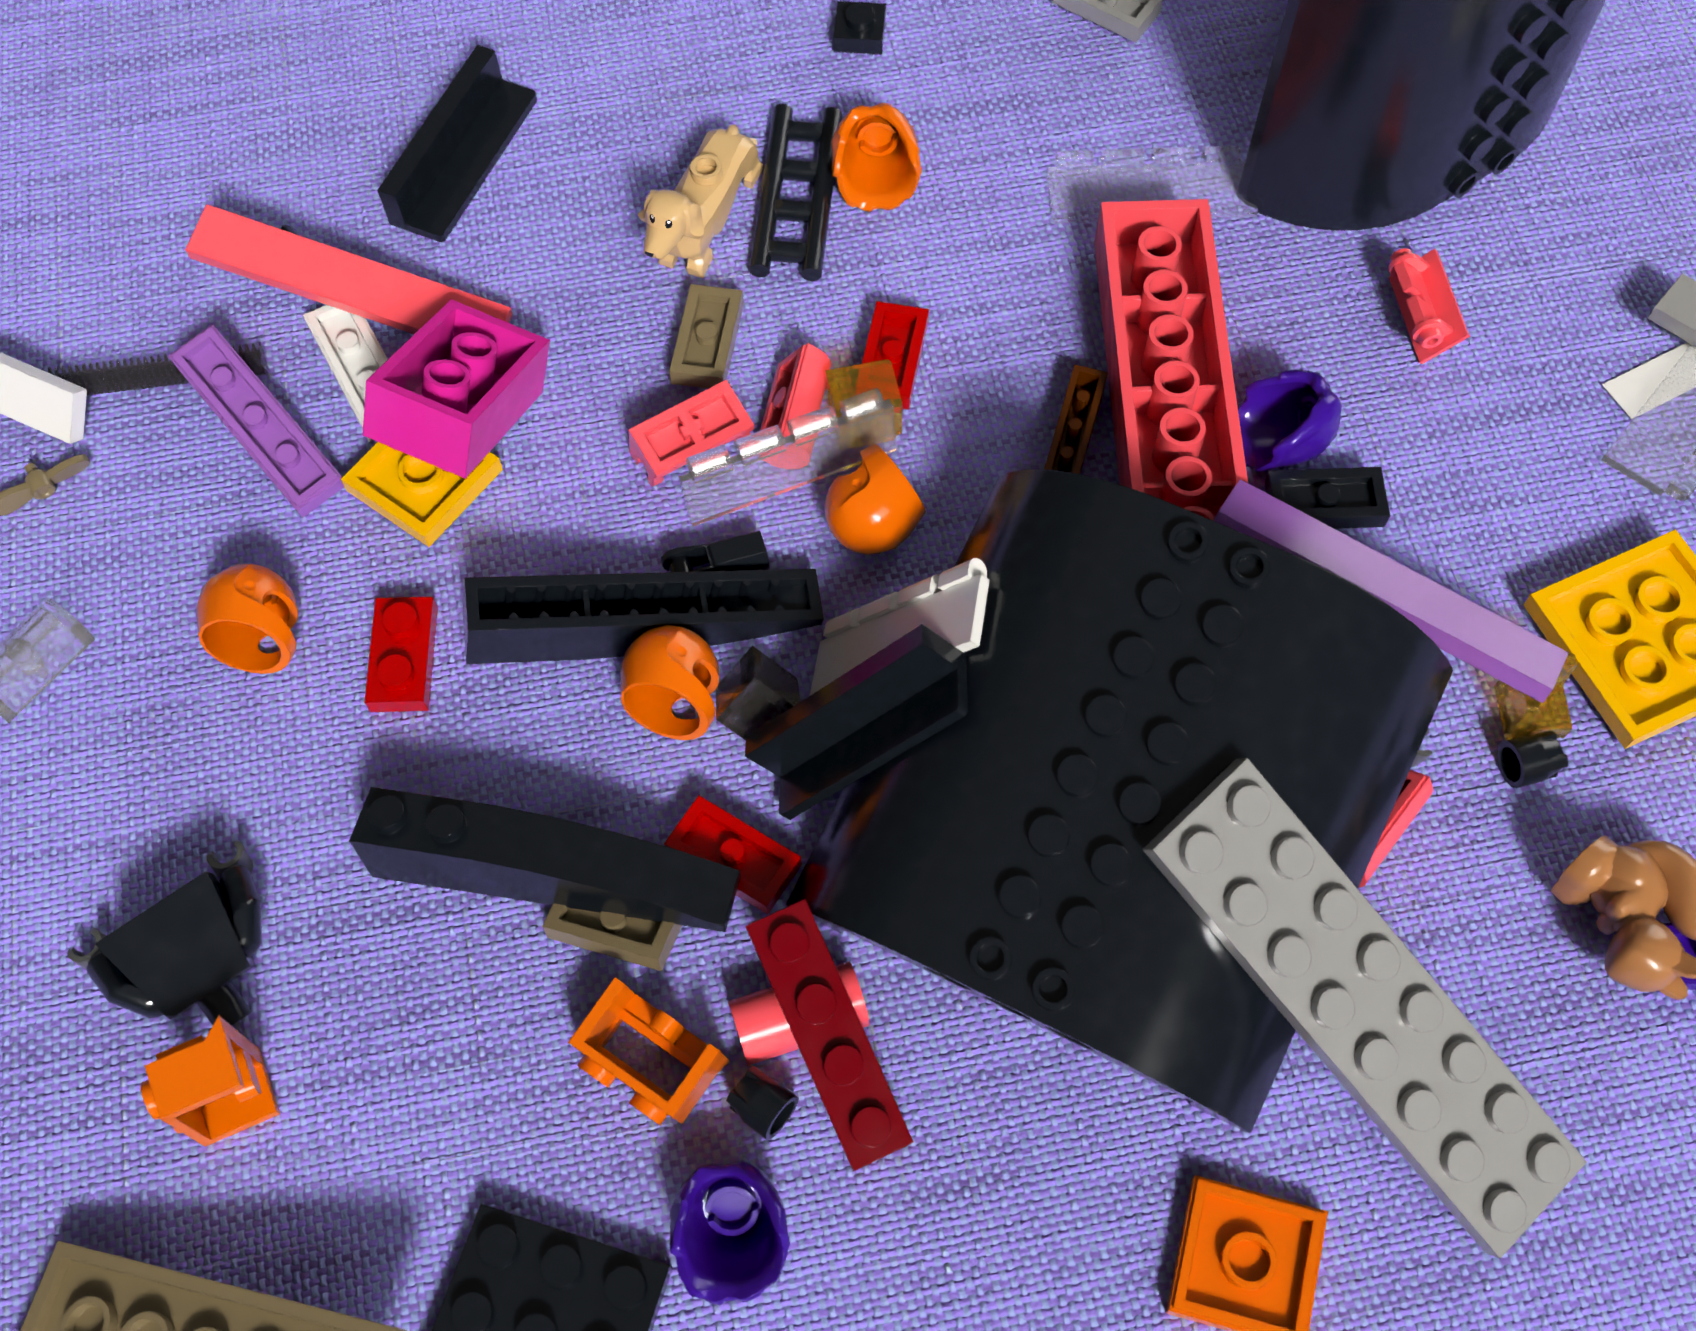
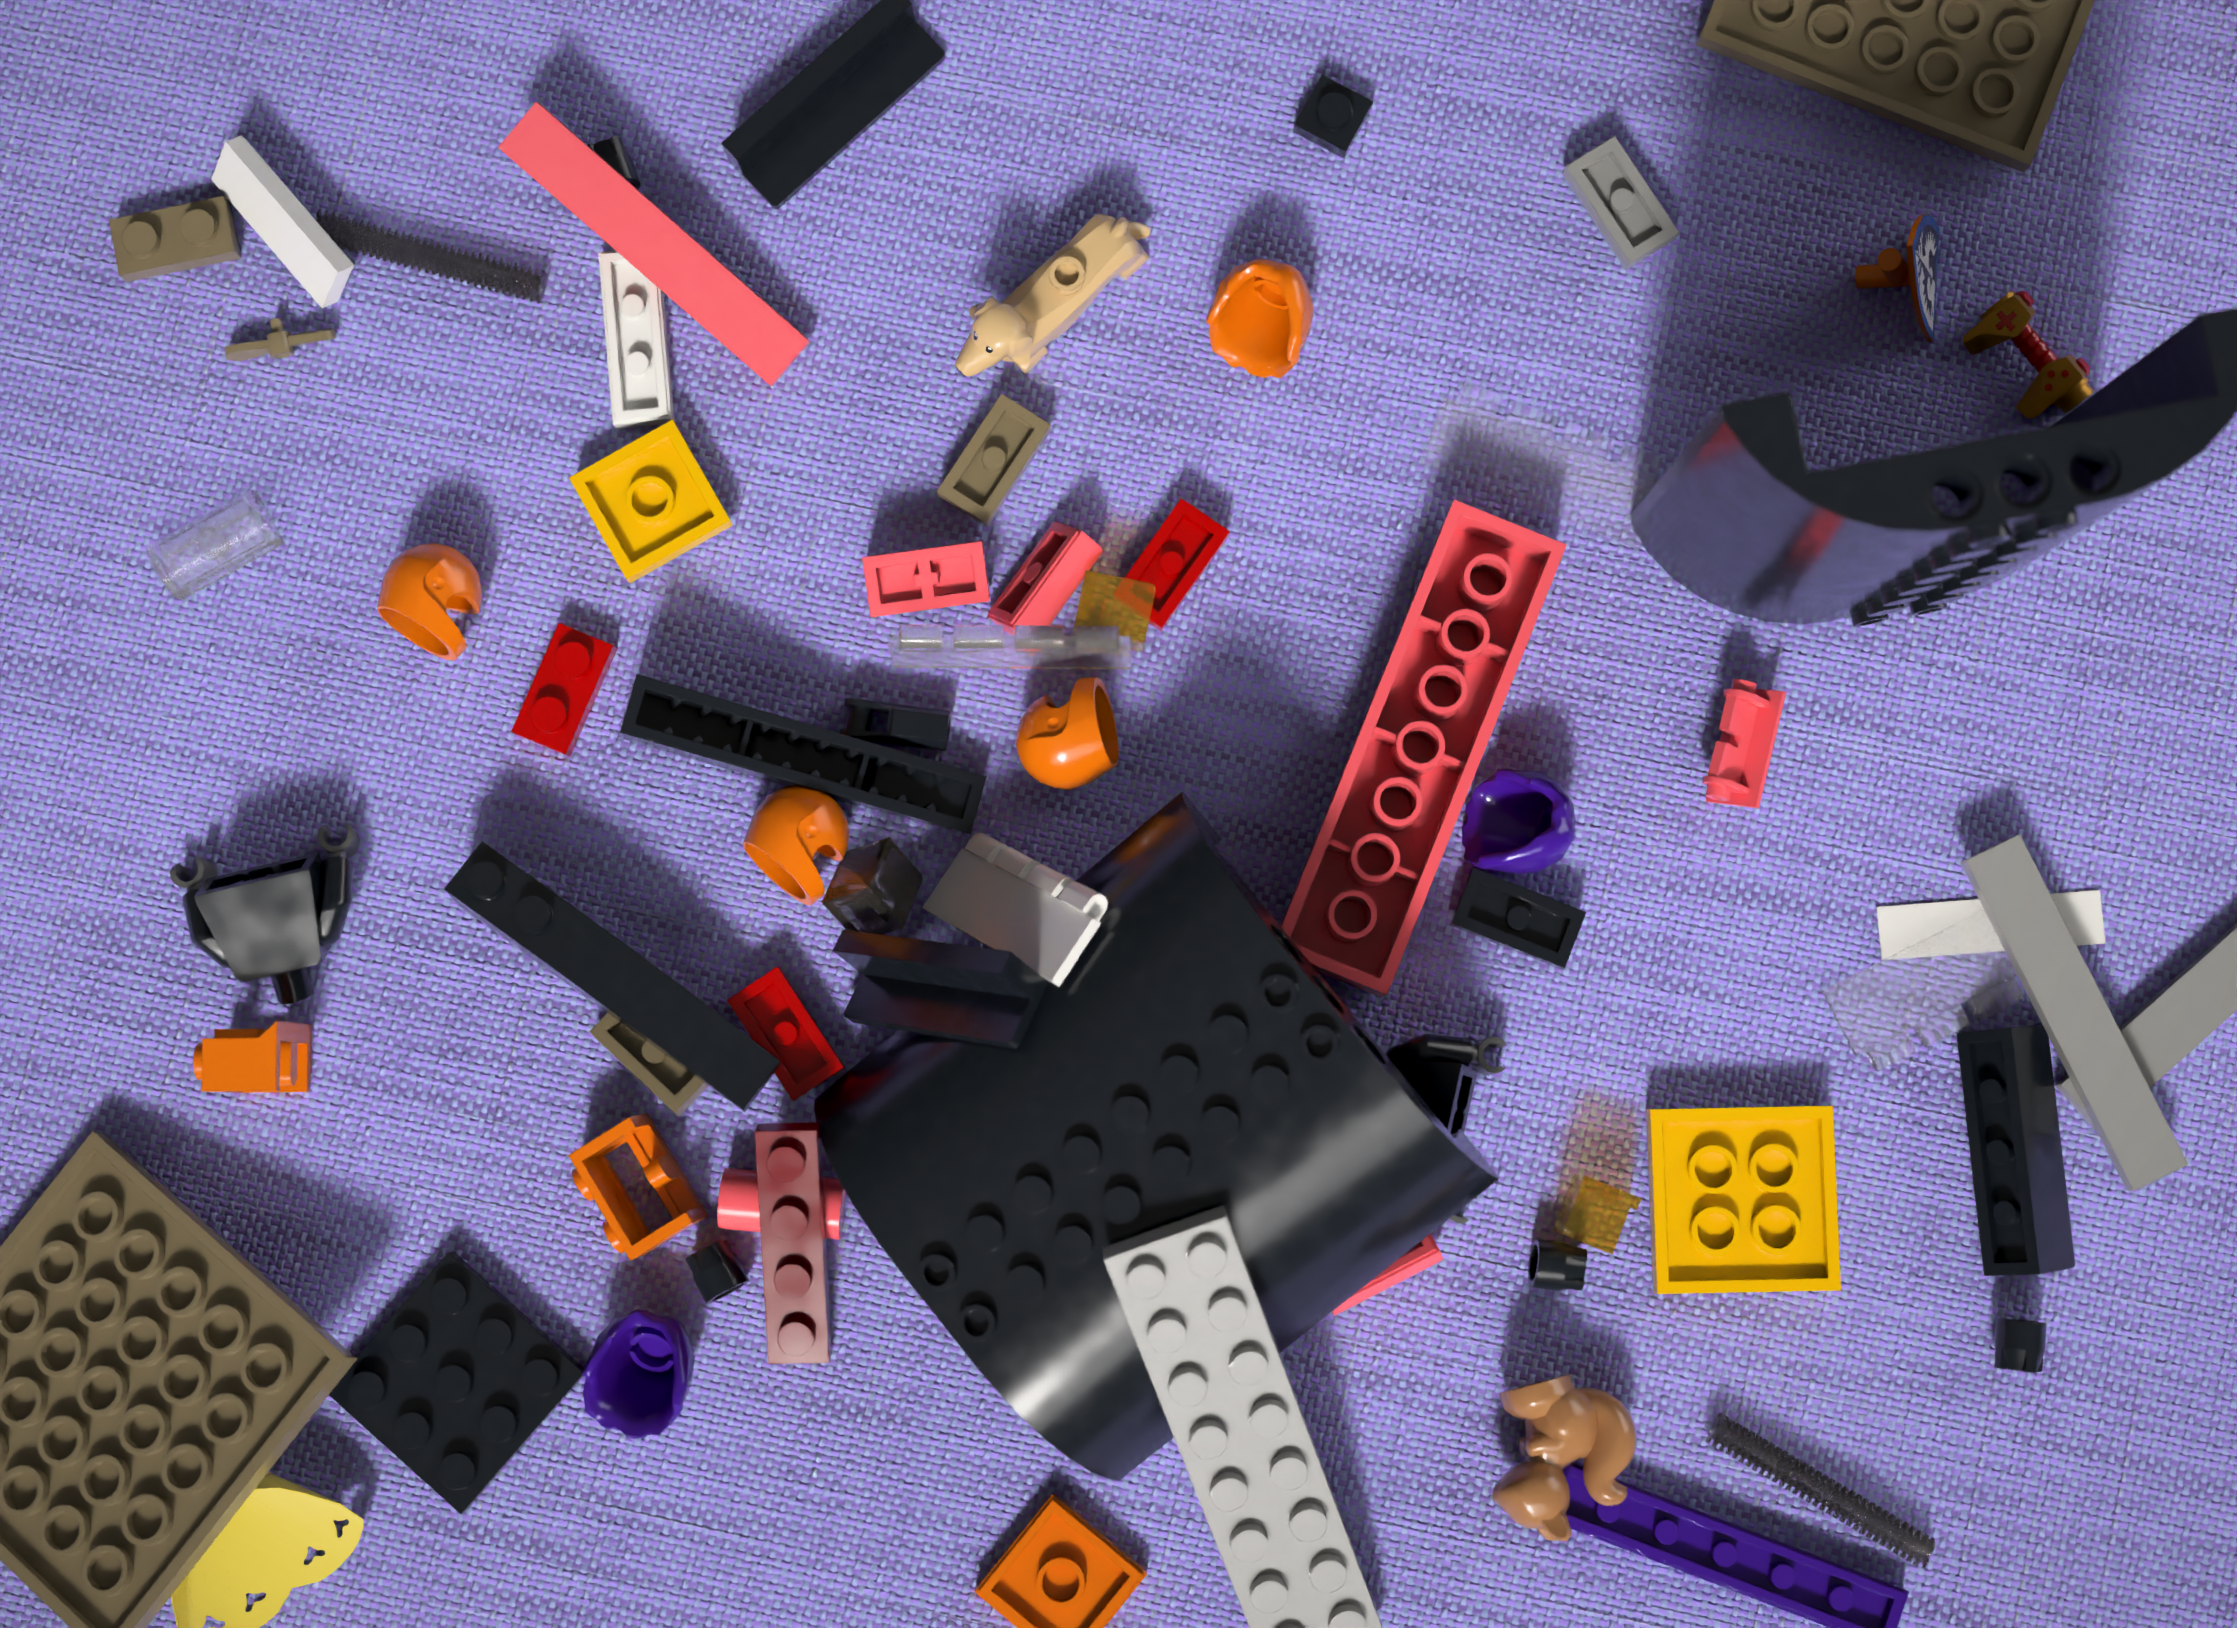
camera: 25 degrees right, 20 degrees up
(257, 420) = (510, 367): medium lavender tile -> none
(455, 388) = (711, 438): dark pink brick -> none
(773, 208) = (1132, 323): black bar -> none
(1076, 420) = (1309, 733): reddish brown piece -> none
(1443, 615) = (1493, 1066): medium lavender tile -> none

